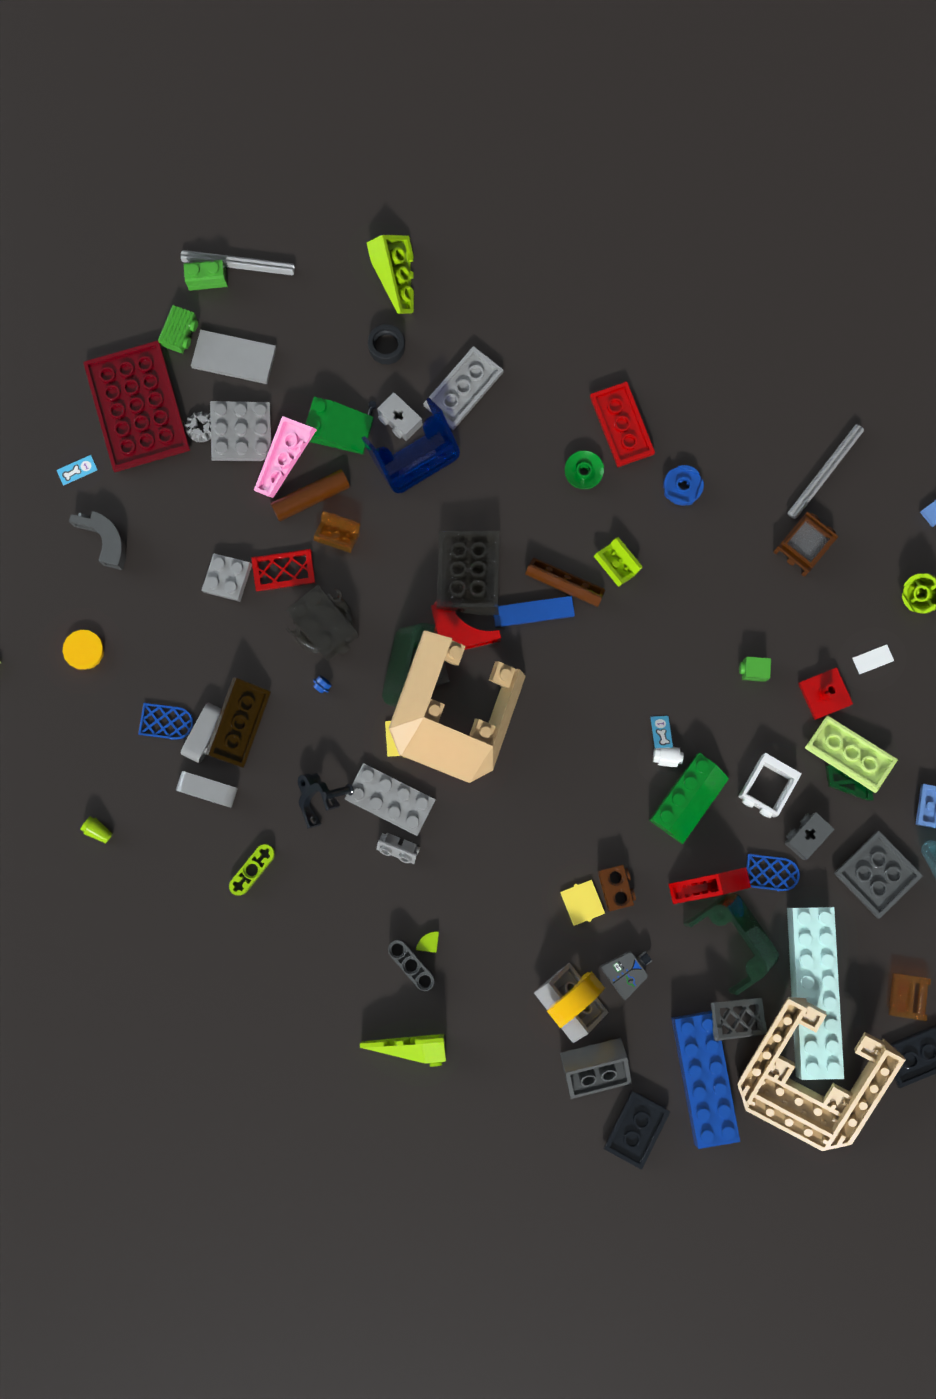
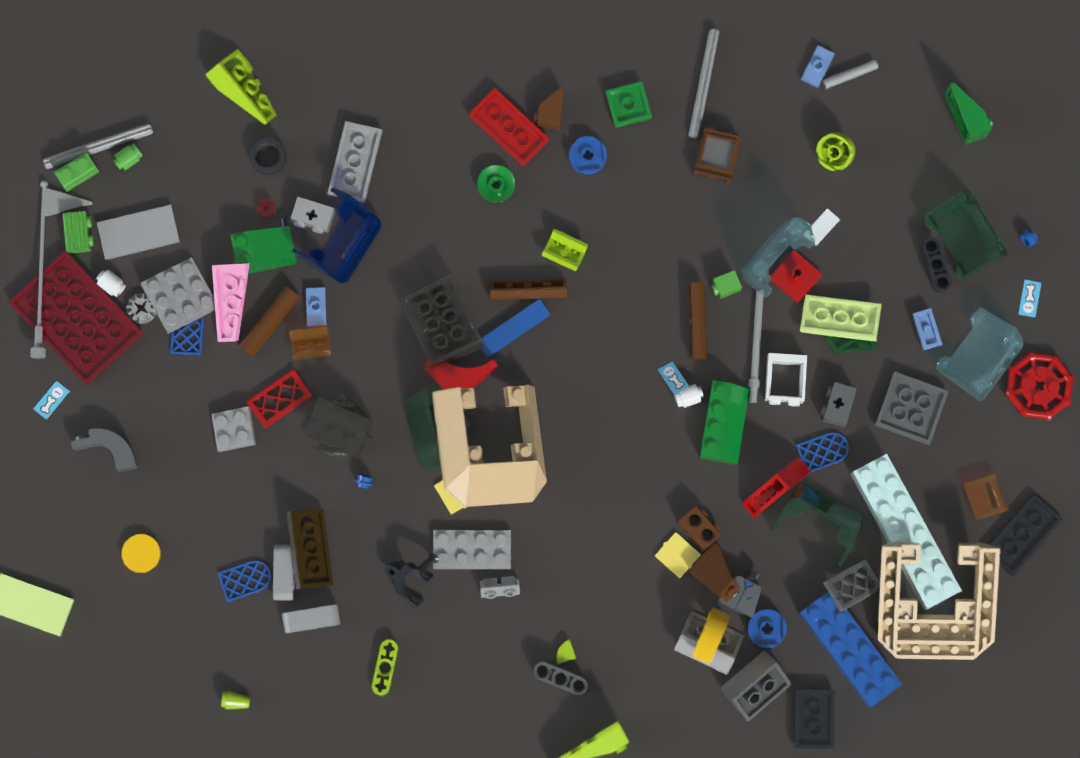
camera: 30 degrees left, 0 degrees up
(169, 294) = (52, 203): none -> light grey piece
(184, 389) = (110, 283): none -> white brick
(239, 481) = (186, 352): none -> blue window
(258, 284) = (127, 157): none -> bright green brick
(360, 385) = (266, 203): none -> clear red plate
(360, 502) = (316, 307): none -> medium blue plate
(611, 939) = (715, 572): none -> reddish brown slope
(645, 1015) = (774, 620): none -> blue plate
(668, 427) = (550, 111): none -> reddish brown slope
(710, 689) = (697, 321): none -> reddish brown brick
(737, 773) = (754, 382): none -> light grey bar
(745, 456) = (628, 104): none -> green plate
(844, 650) = (792, 232): none -> clear light blue windscreen

